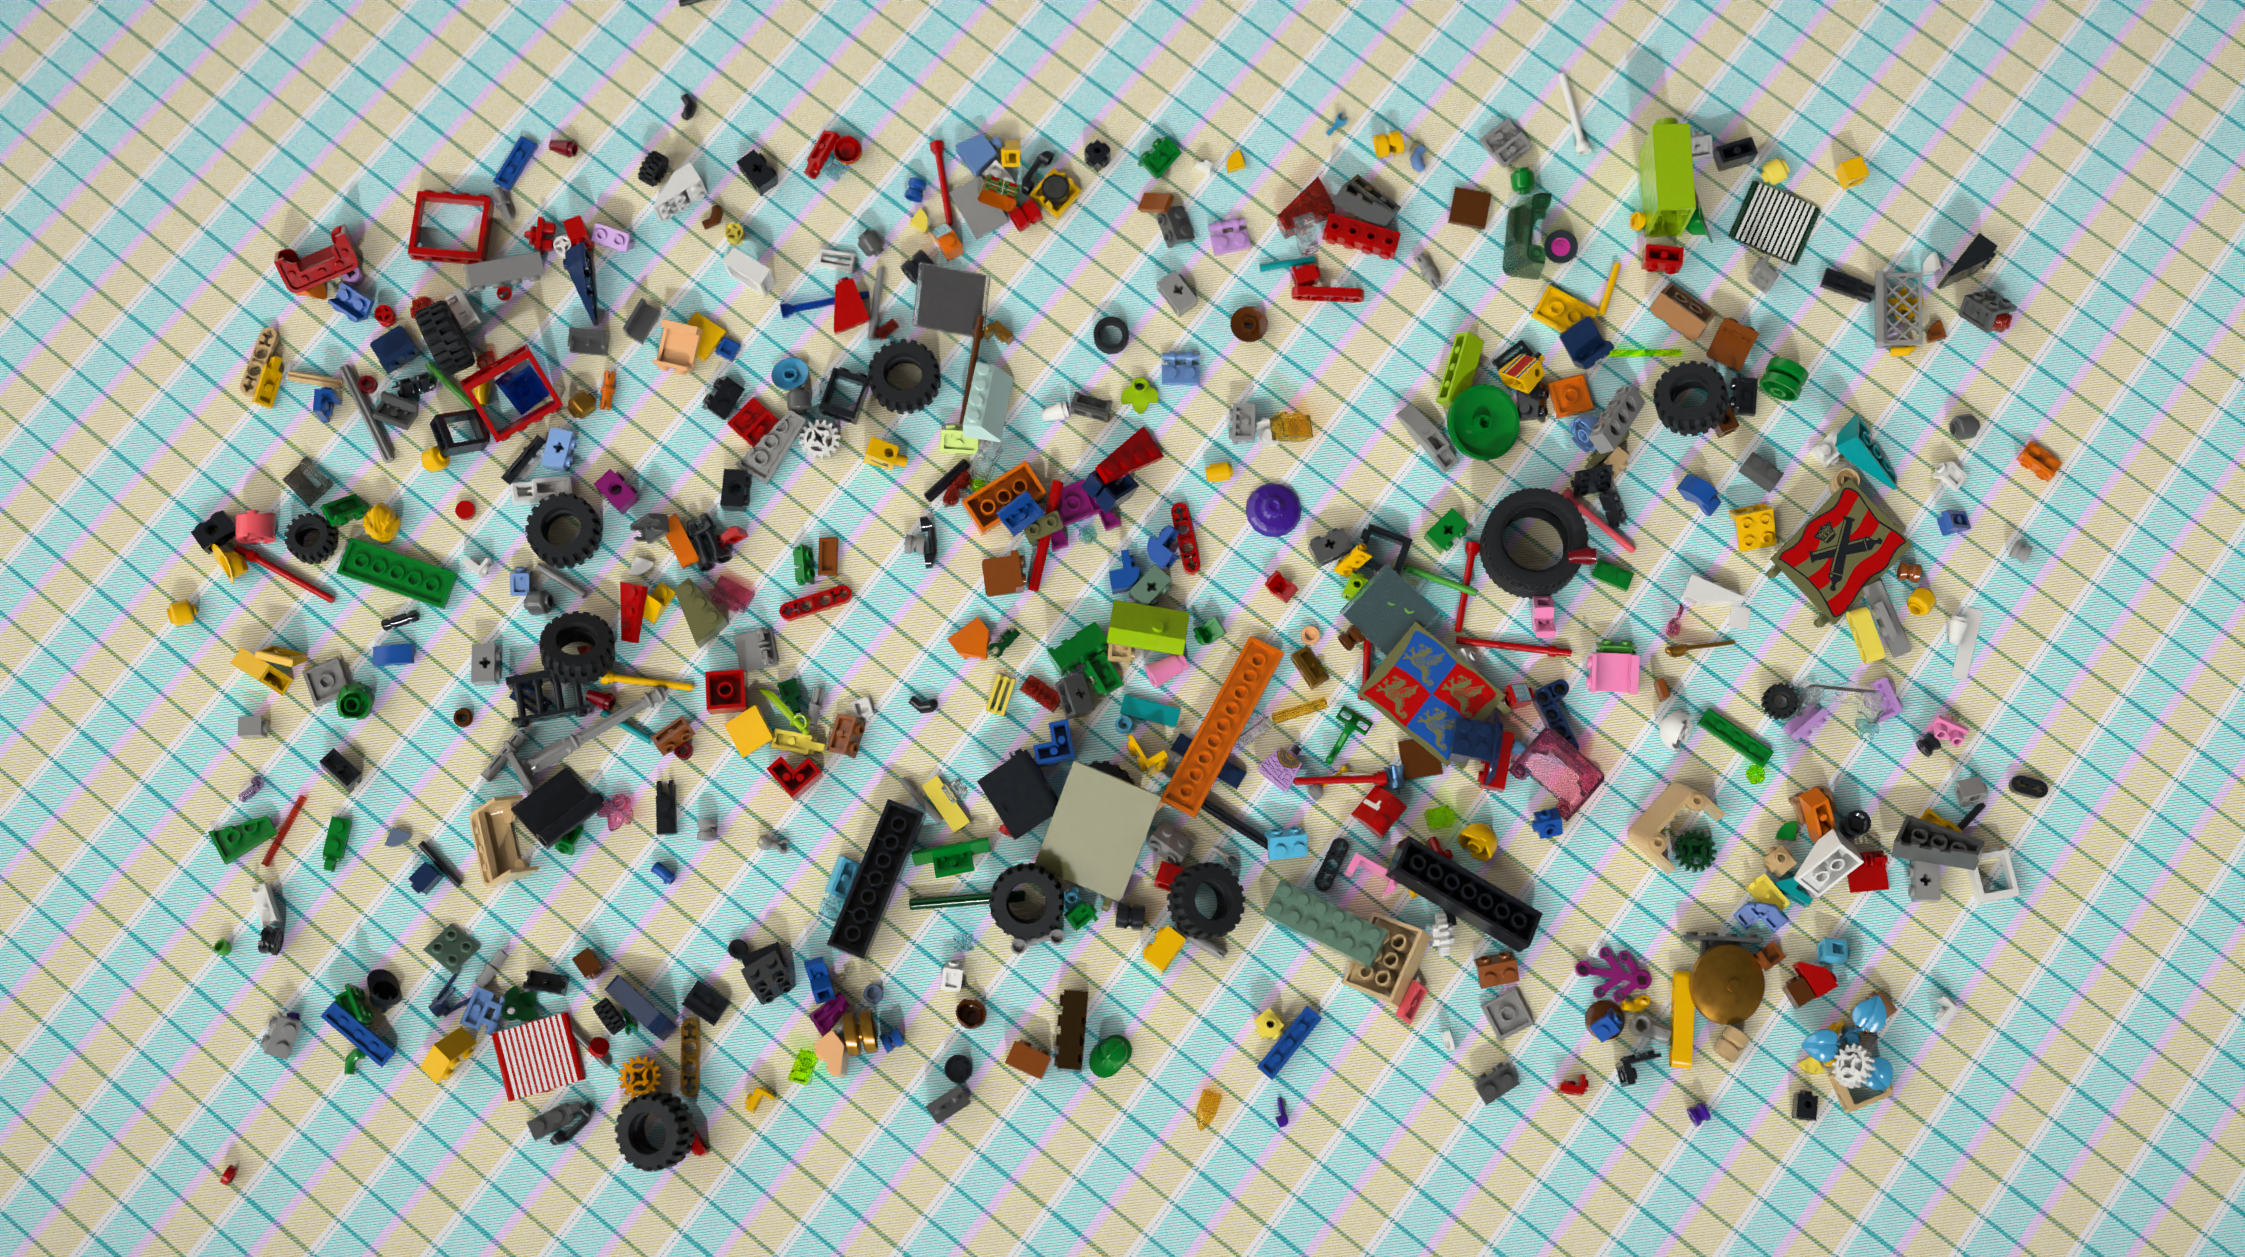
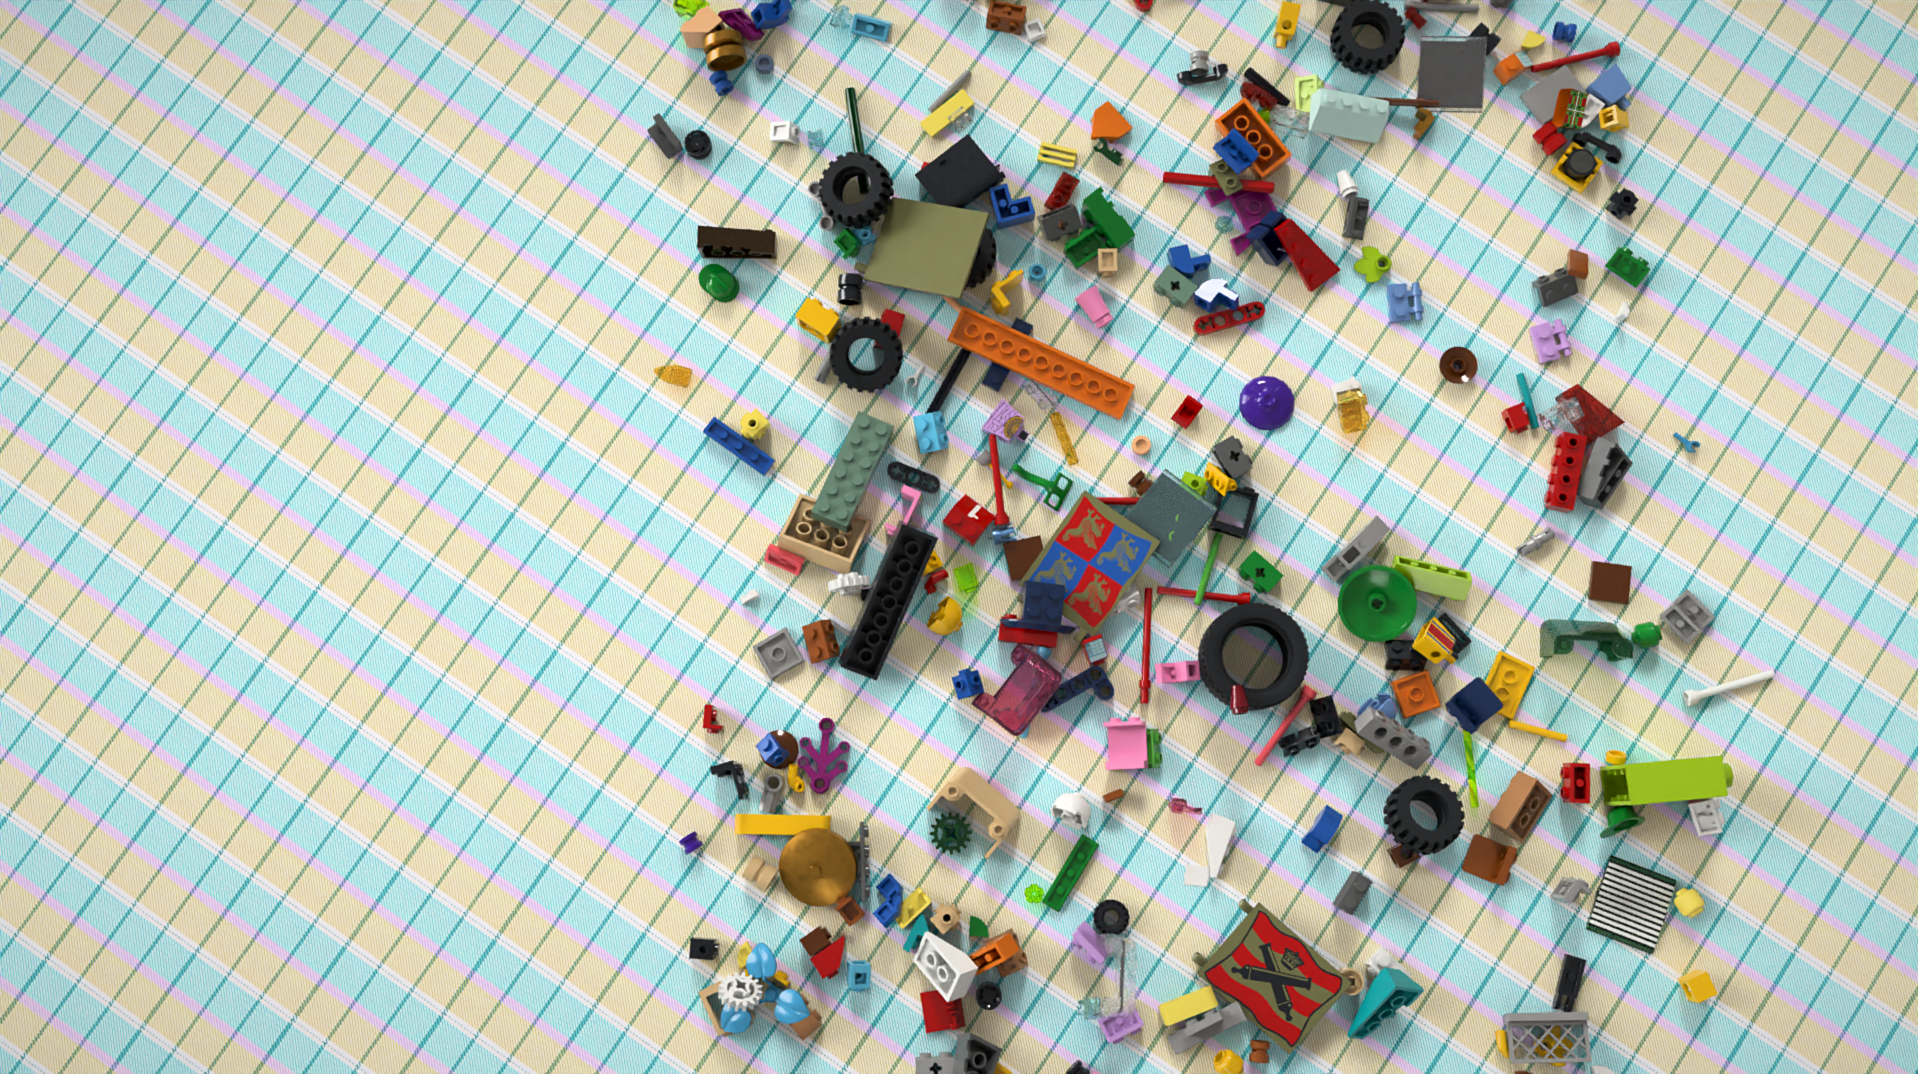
camera: 85 degrees right, 5 degrees up
(876, 880) = (868, 54): black brick -> none
(925, 706) = (1039, 85): black arm -> none
(952, 858) = (895, 123): green bracket -> none
(971, 1013) = (749, 150): reddish brown hair -> none
(1004, 575) = (1176, 148): dark orange bracket -> none
(1028, 1060) = (708, 205): dark orange brick -> none
(1111, 321) = (1440, 220): black tyre -> none
(1148, 627) = (1133, 284): lime brick -> none
(1150, 711) = (1052, 296): teal tile -> none
(1170, 844) = (923, 323): light grey bracket -> none
(1179, 303) = (1491, 285): light grey brick -> none
(1209, 632) = (1135, 346): green bracket -> none
(1218, 472) = (1299, 345): yellow brick -> none
(1235, 162) = (1632, 342): yellow tile -> none
(1243, 422) = (1353, 364): light grey bracket -> none
(1282, 1120) = (667, 445): dark purple hand -> none
(1309, 667) = (1108, 445): pearl gold hinge -> none
(1327, 294) = (1499, 443): red beam -> none
(1388, 144) = (1670, 494): yellow wheel -> none
(1416, 160) = (1658, 524): medium blue arm -> none
(1496, 1083) = (711, 645): dark grey bracket -> none
(1561, 246) = (1577, 677): black wheel -> none
(1612, 575) = (1229, 743): green plate -> none
(1680, 650) = (1156, 814): pearl gold sword -> none
(1735, 154) = (1703, 858): black brick -> none
(1744, 395) = (1434, 874): black bracket -> none
(1754, 526) = (1293, 887): yellow bracket -> none
(1783, 379) = (1455, 913): green wheel -> none

